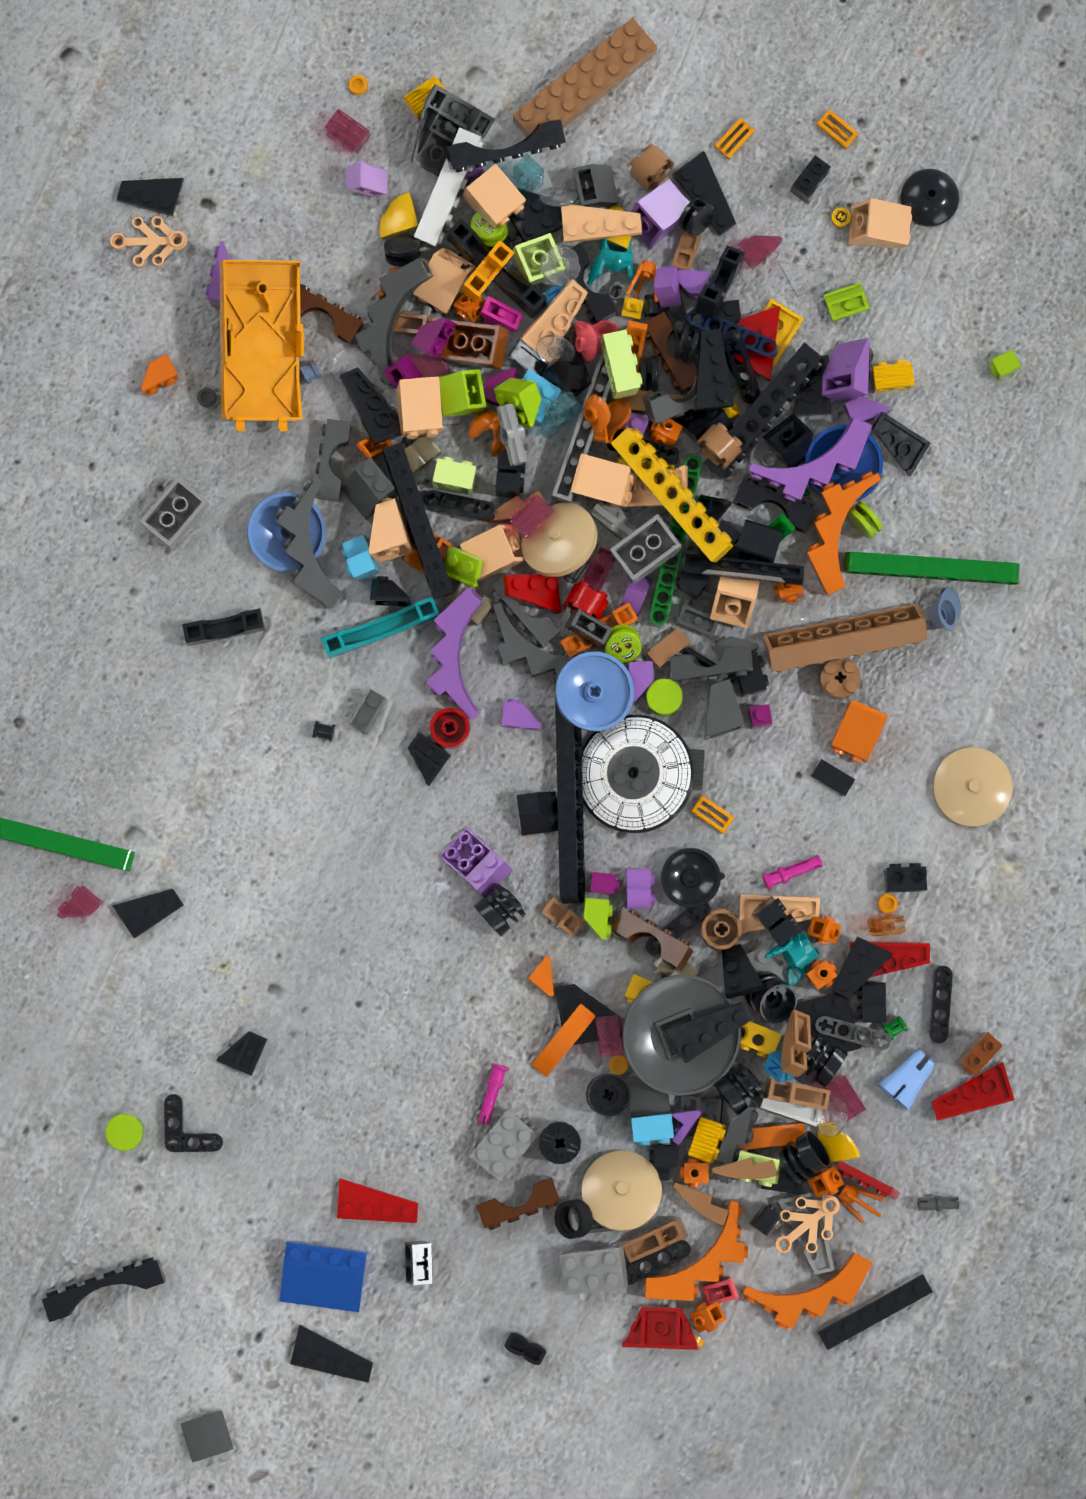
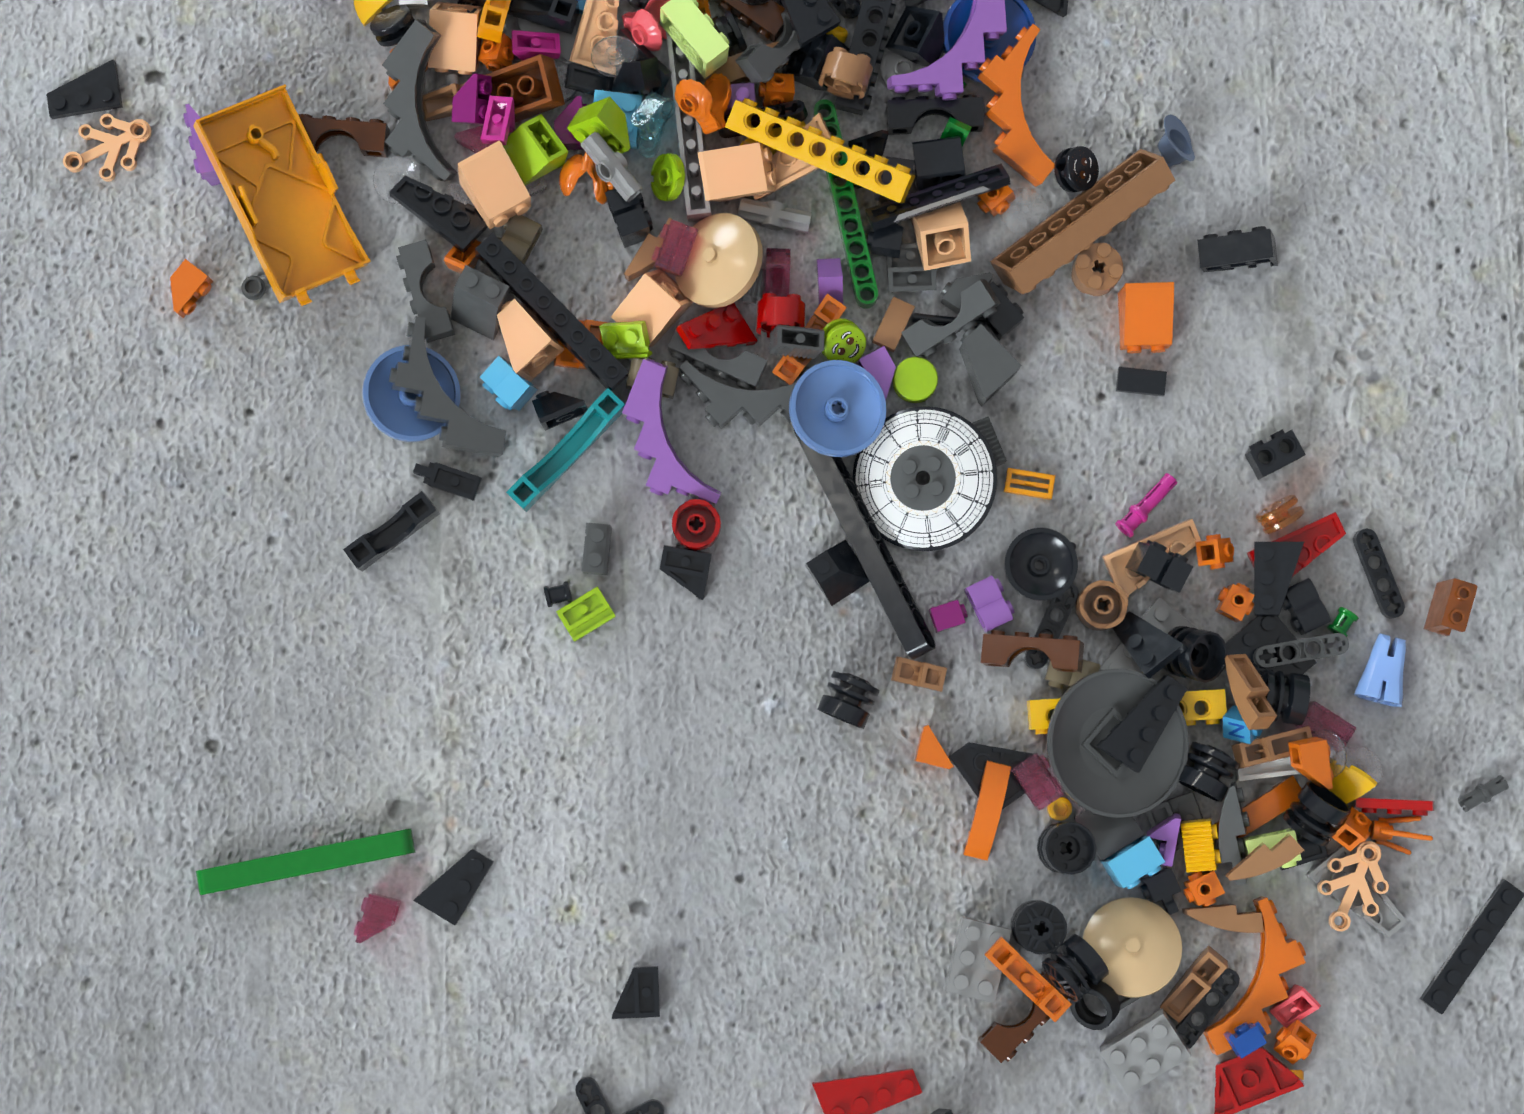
camera: 25 degrees left, 0 degrees up
(174, 513) = (277, 431): light grey brick -> none
(284, 609) = (449, 479): none -> black hinge
(310, 371) = (355, 206): sand blue wheel -> none
(337, 755) = (586, 614): none -> lime plate
(401, 369) = (453, 153): magenta slope -> none
(445, 360) = (498, 120): none -> dark pink slope
(454, 476) = (569, 245): yellowish green brick -> none
(458, 508) = (590, 279): black beam -> none
(476, 862) = (795, 659): medium lavender slope -> none
(494, 1083) = (934, 895): dark pink pin -> none
(518, 716) = (766, 476): medium lavender slope -> none
(532, 1175) = (1027, 979): none -> orange slope
(552, 459) = (668, 177): none -> lime tile
(574, 1182) = (1076, 966): none -> black wheel
(596, 916) = (959, 656): lime slope -> none
(646, 549) = (819, 225): light grey brick -> none
(672, 1295) = (1246, 1038): none -> blue brick
(760, 716) = (1030, 351): magenta brick -> none
(766, 1218) = (1306, 902): black brick -> none
(788, 1307) = (1378, 987): orange arch -> none
(798, 954) = (1198, 593): teal helmet -> none
(818, 1115) = (1311, 759): none -> orange slope
(860, 596) = (1076, 169): none -> black head
(865, 520) = (1041, 84): lime head -> none
(887, 903) = (1267, 490): light orange tile -> none
(932, 568) = (1138, 103): green beam -> none
(952, 713) = (1237, 250): none -> black wedge
(972, 787) = (1297, 320): tan dish -> none
(979, 1093) = (1465, 654): red wing -> none

